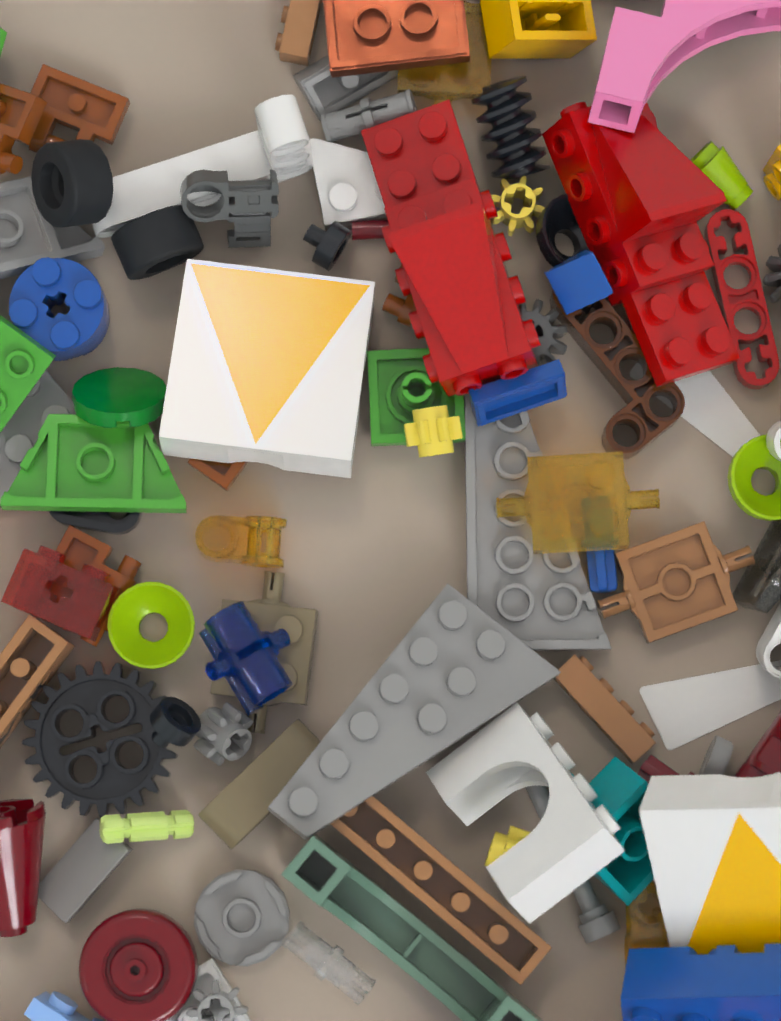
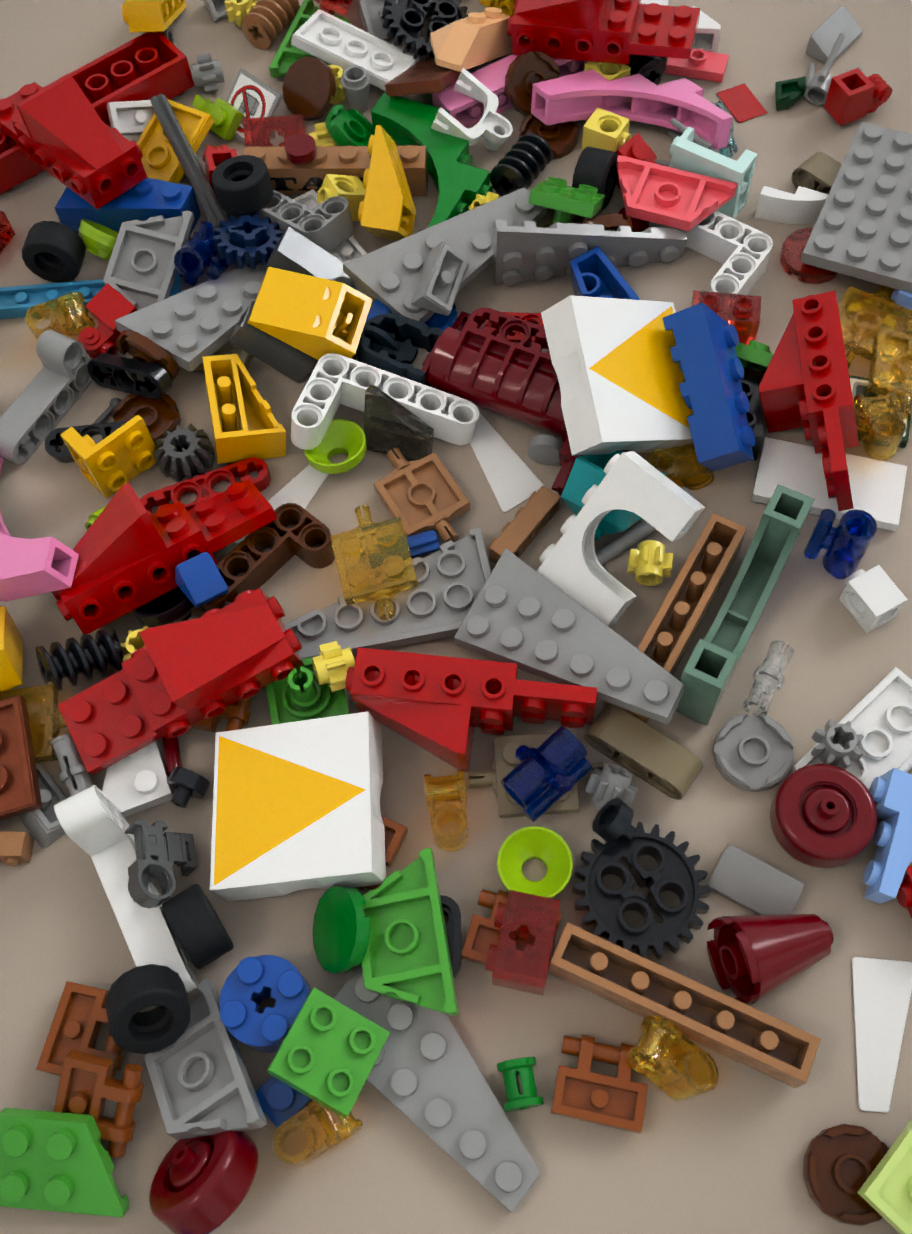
camera: 95 degrees left, 20 degrees down
(146, 826) = (704, 836): yellowish green axle -> none
(361, 553) = (444, 697): none -> red wedge
(516, 395) = (296, 612): blue tile -> none

